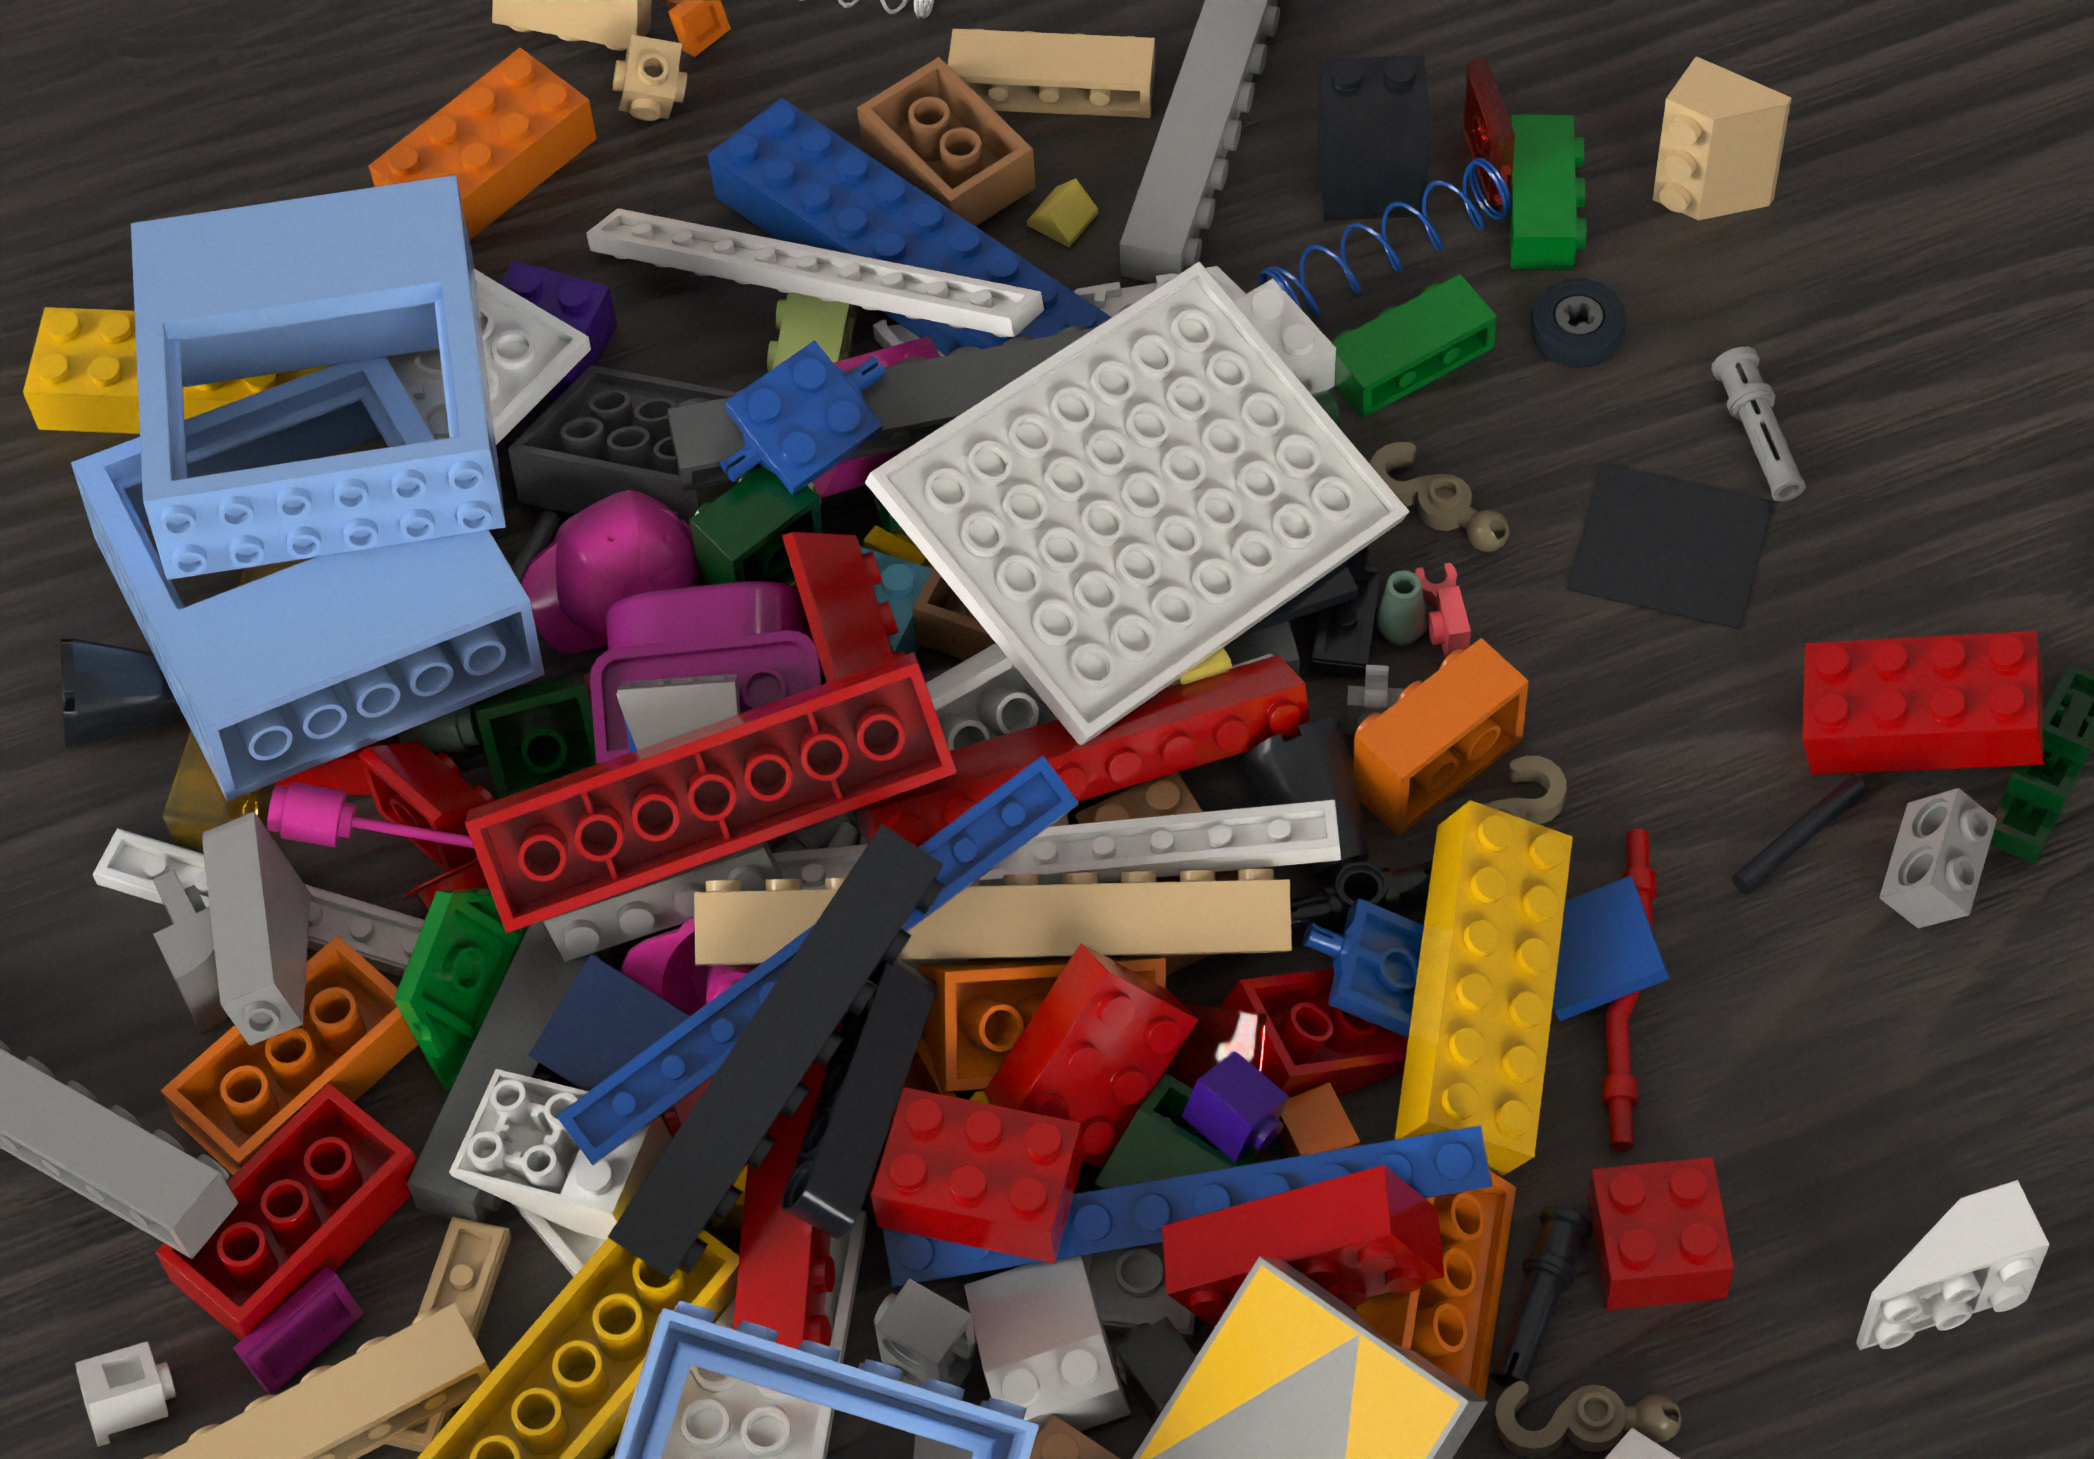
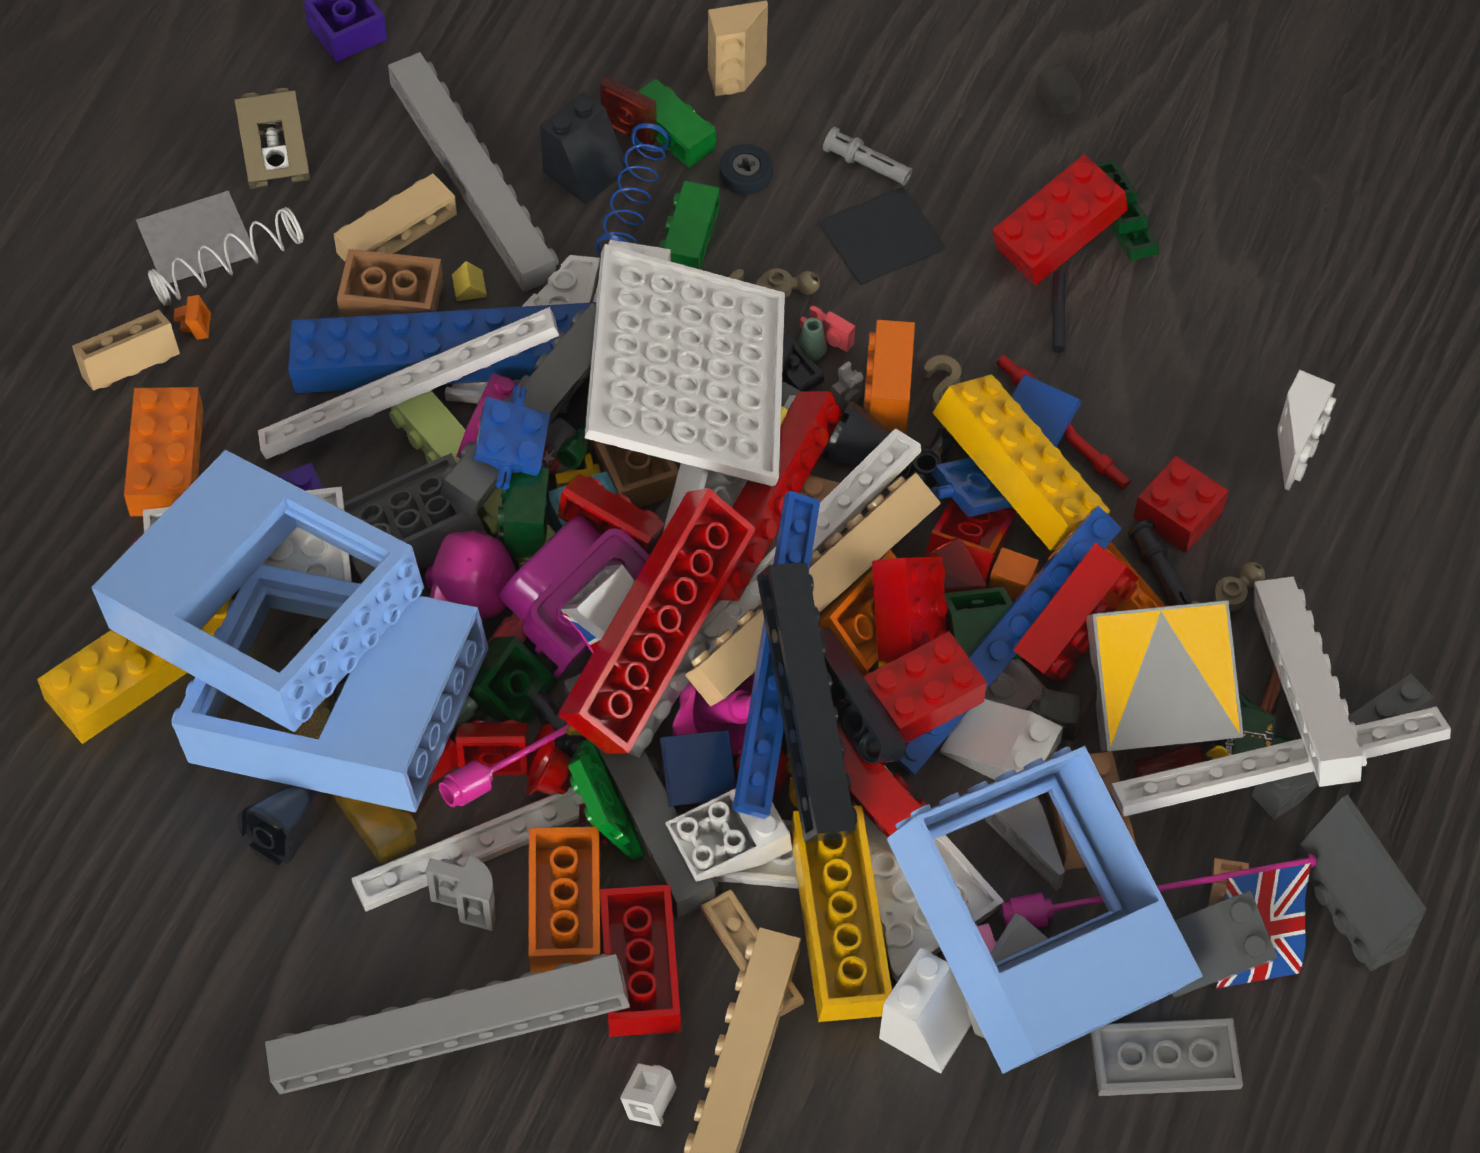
camera: 50 degrees left, 0 degrees up
(257, 928) = (499, 850): light grey slope -> none
(299, 1330) = (695, 1003): magenta tile -> none
(650, 78) = (208, 359): tan brick -> none
(926, 1336) = (961, 770): light grey brick -> none
(1236, 1107) = (989, 581): dark purple brick -> none
(1938, 858) = (1127, 277): light grey brick -> none

